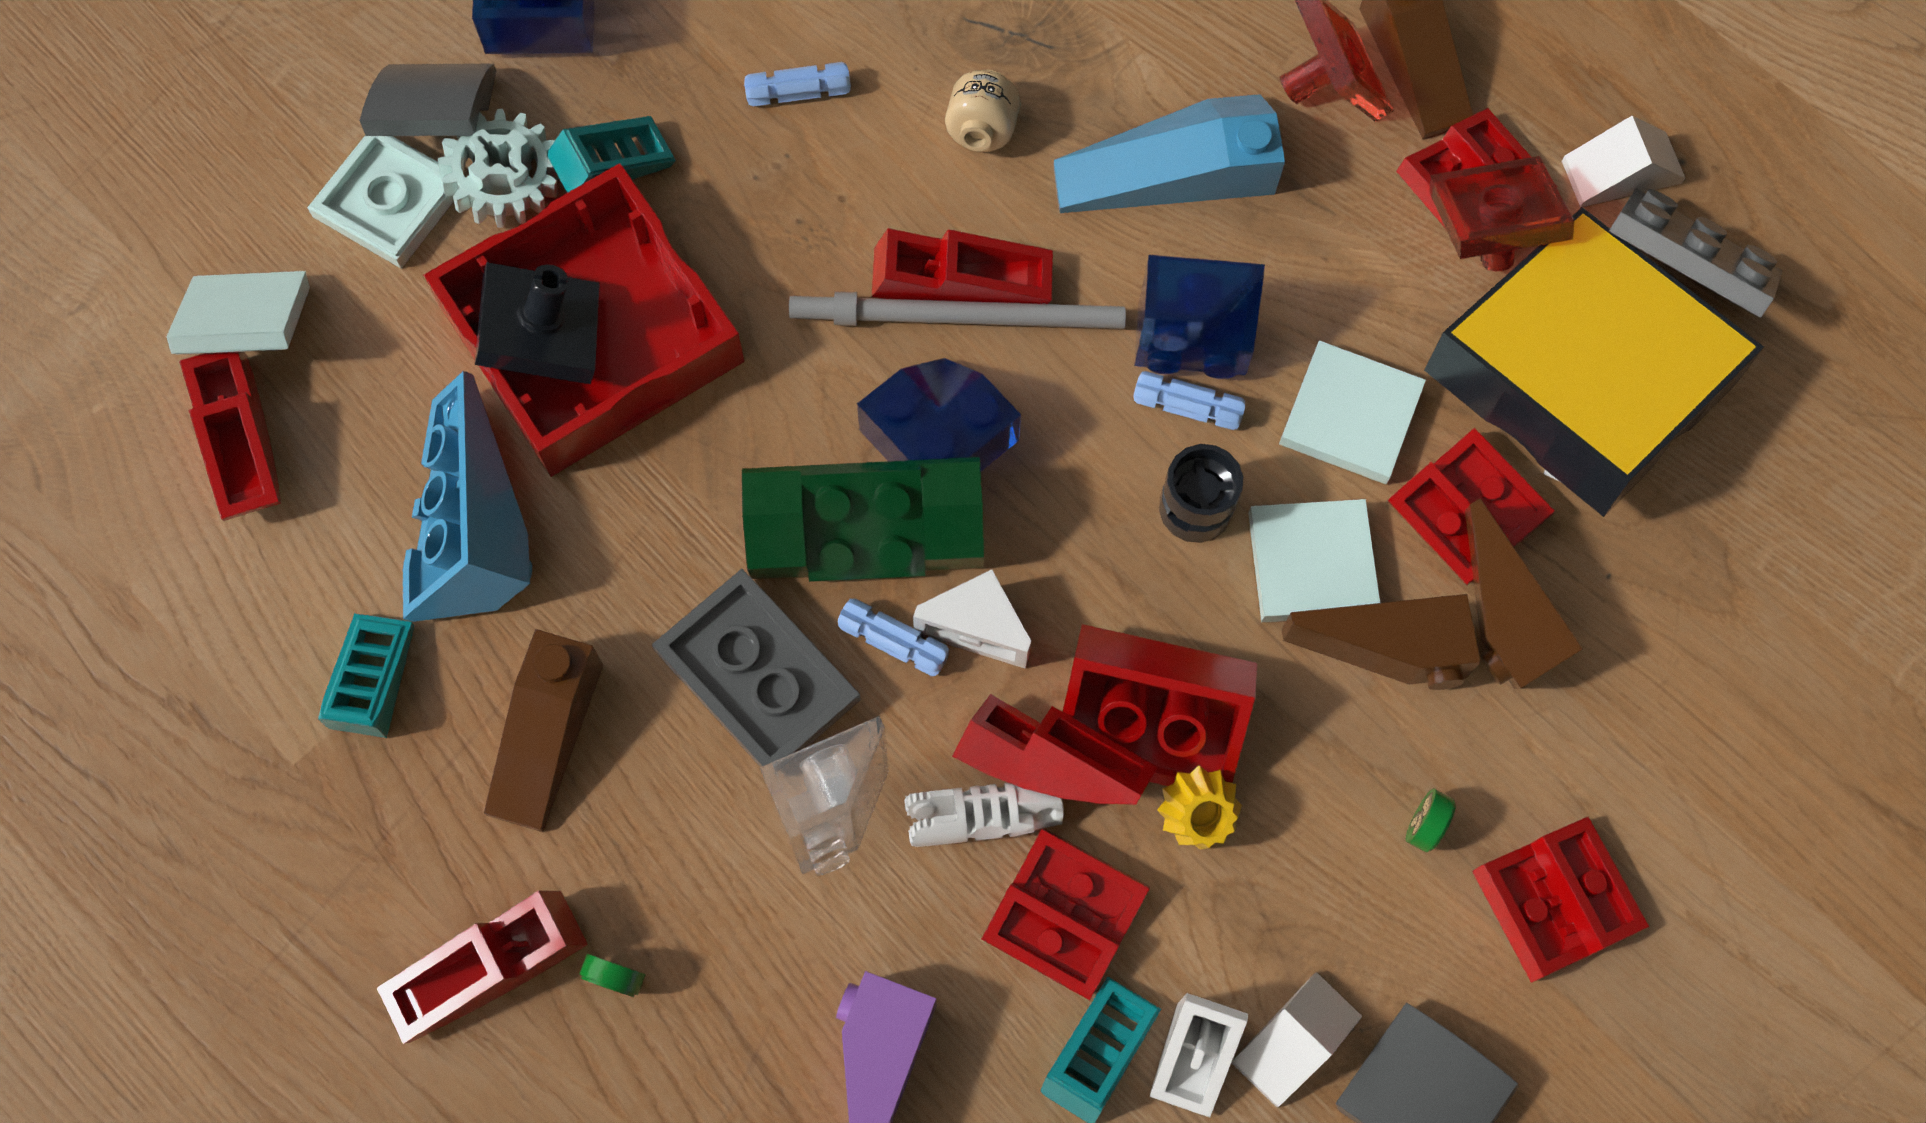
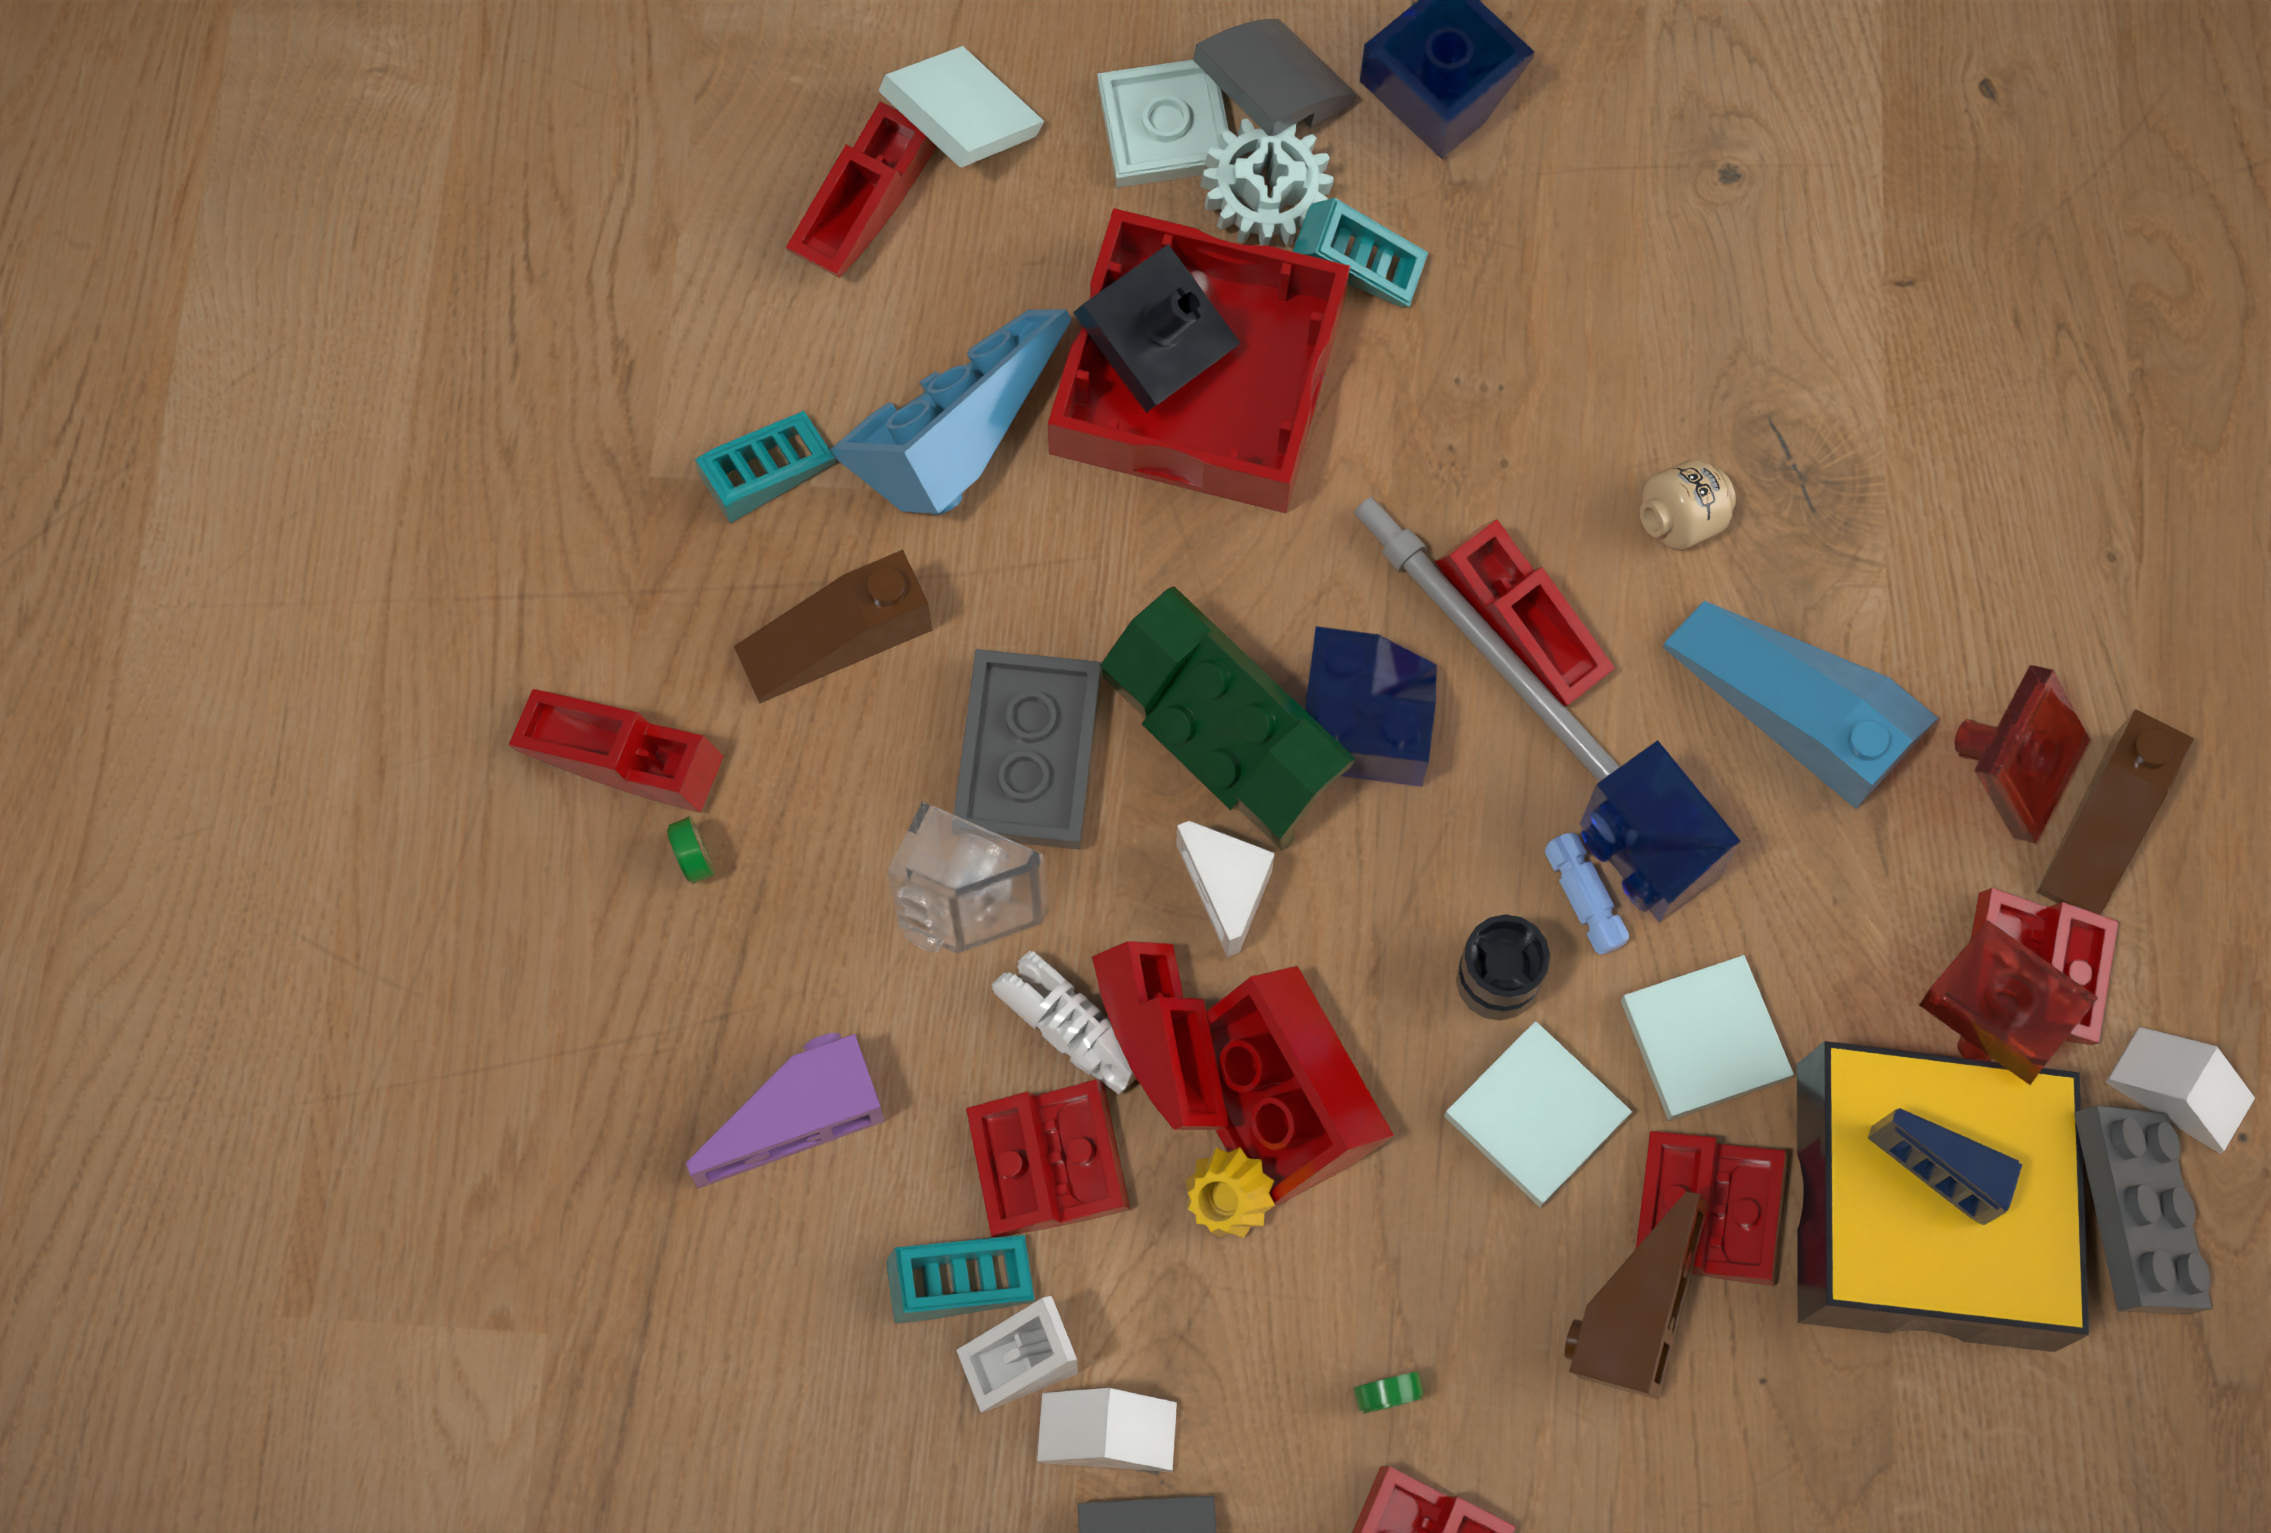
camera: 50 degrees right, 0 degrees up
(797, 84) = (1570, 338): light blue axle -> none
(893, 637) = (1155, 829): light blue axle -> none
(1398, 639) = (1531, 1243): reddish brown slope -> none
(1601, 325) = (1954, 1166): none -> dark blue slope

